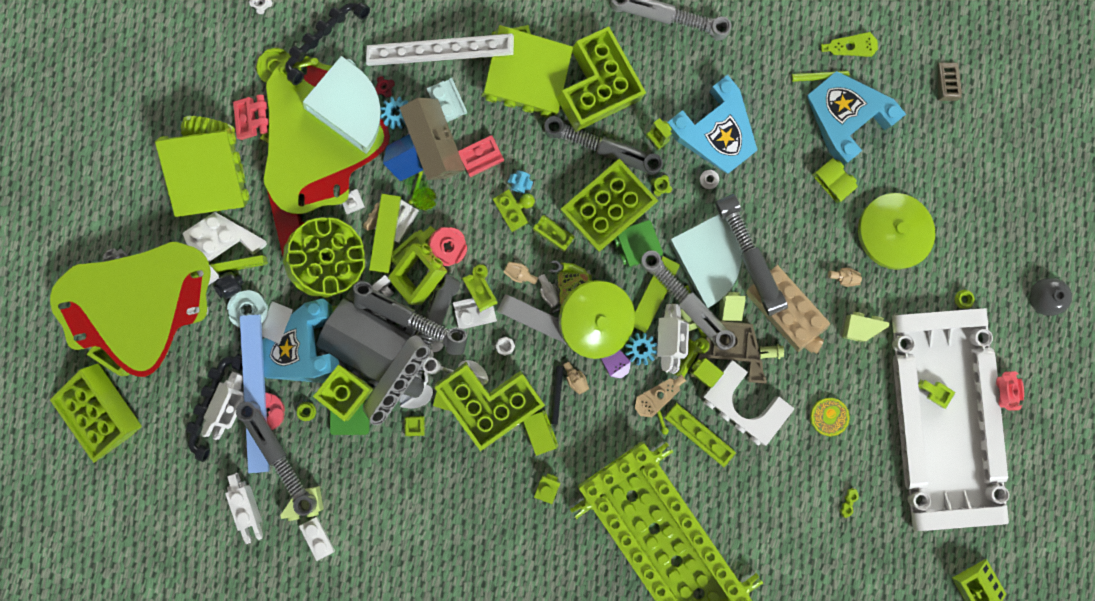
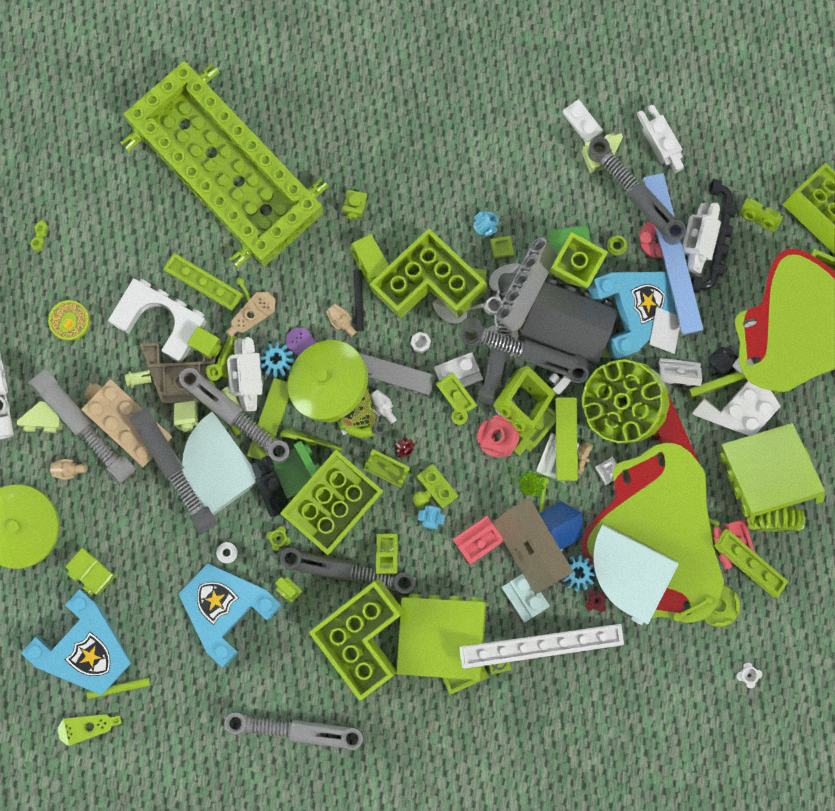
camera: 175 degrees right, 5 degrees down
(171, 424) = (767, 219): none -> lime hinge
(239, 96) = (751, 563): none -> lime tile
(246, 298) = (701, 351): light aqua plate -> none
(269, 280) = (680, 372): none -> white plate
(324, 28) = (673, 654): black bar -> none
(426, 450) = (485, 223): none -> medium azure gear
(519, 273) = (417, 421): tan piece -> none
(534, 250) = (404, 447): none -> dark red plate
(565, 155) = (387, 554): none -> lime slope
(630, 275) = (309, 439): none -> lime piece
(662, 229) = (269, 486): none -> black hinge
(840, 325) = (47, 388): none -> light grey piece

